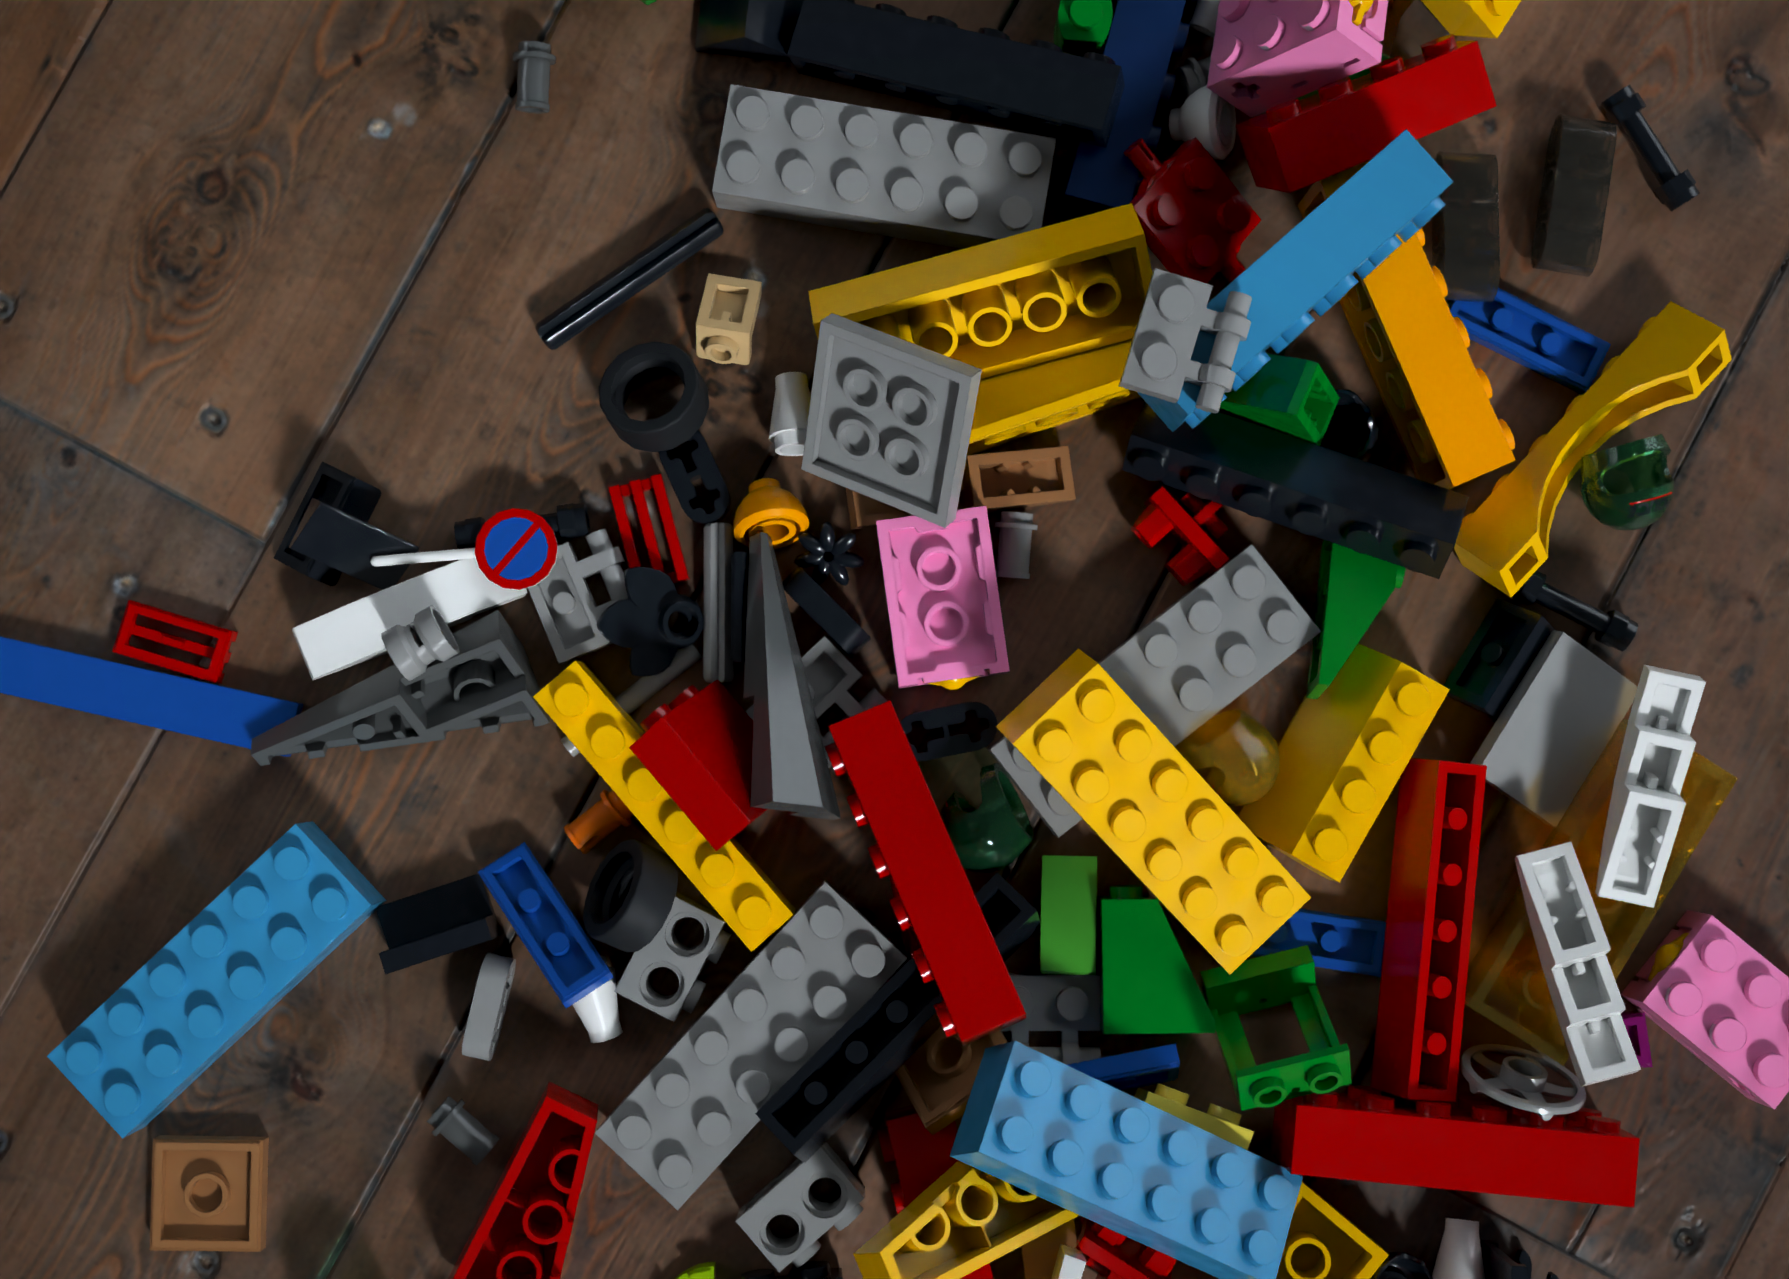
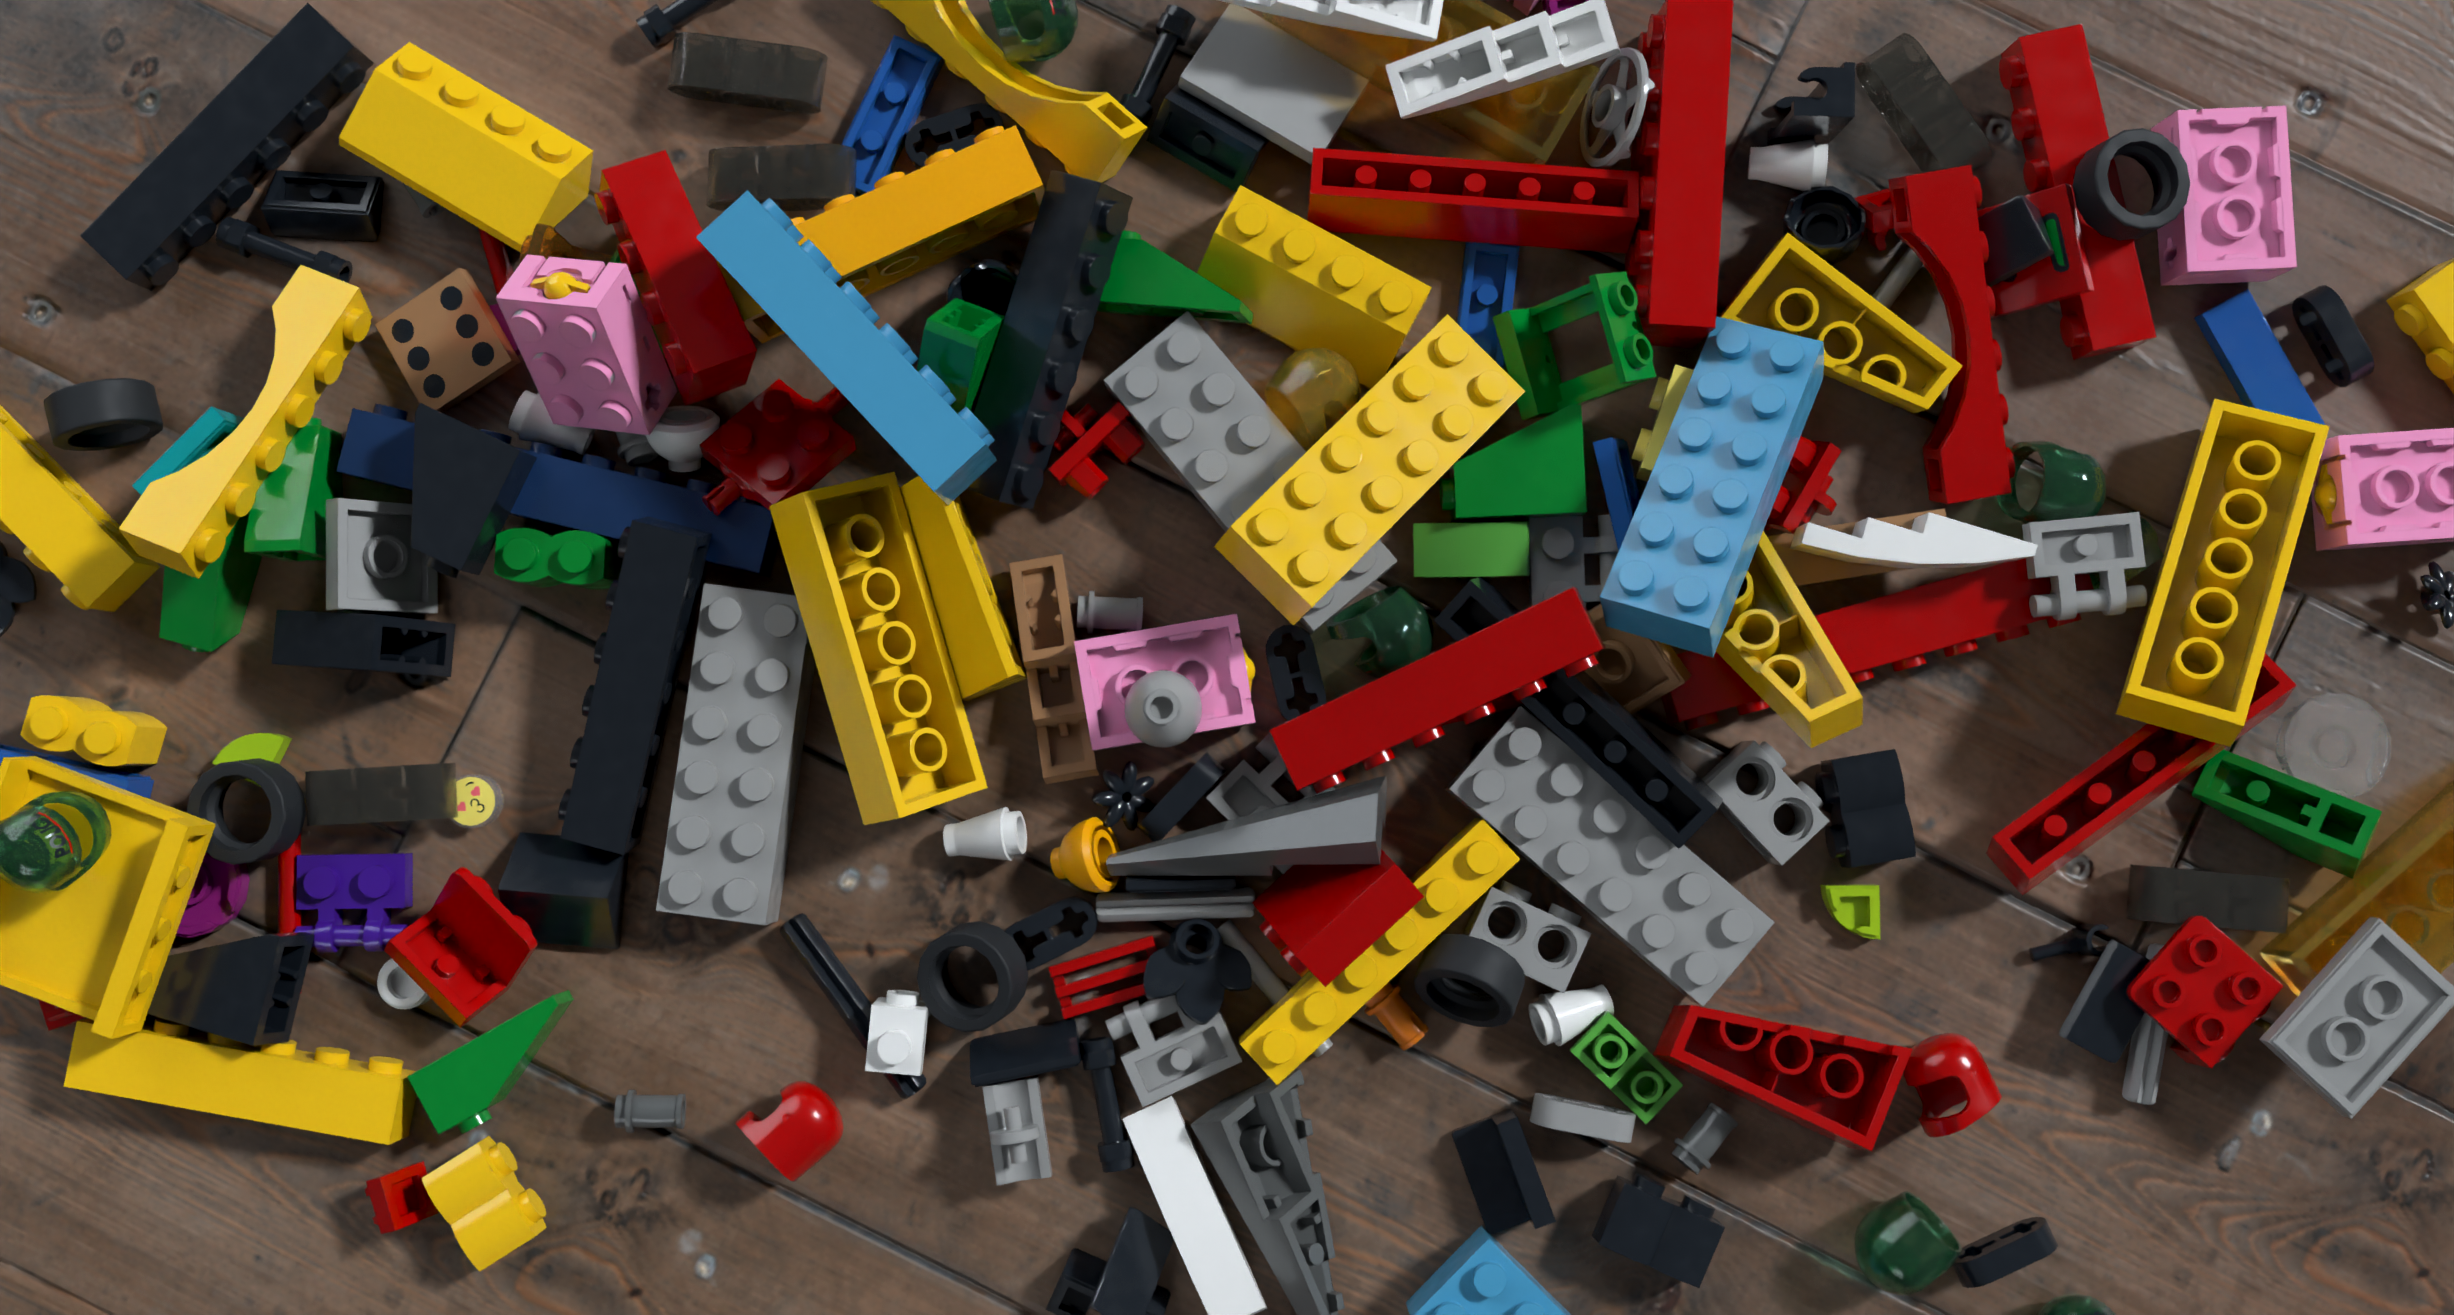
camera: 90 degrees left, 0 degrees up
(372, 1080) = (1659, 1230): none -> black brick
(420, 643) = (1227, 1200): light grey wheel -> none
(499, 437) = (1017, 1130): none -> light grey hips
(507, 220) = (798, 1131): none -> red helmet
(511, 550) = (1129, 1114): piece -> none
(537, 1053) = (1626, 1067): none -> bright green slope
(545, 925) = (1500, 1064): blue tile -> none
(576, 447) = (1024, 1052): none -> black slope
(599, 320) = (897, 1033): none -> white bracket
(727, 319) = (891, 905): tan bracket -> none
(890, 419) = (992, 739): light grey plate -> none
(915, 593) = (1163, 708): none -> light grey brick
(1167, 336) = (907, 465): light grey plate -> none
(1514, 395) = (947, 127): none -> black beam

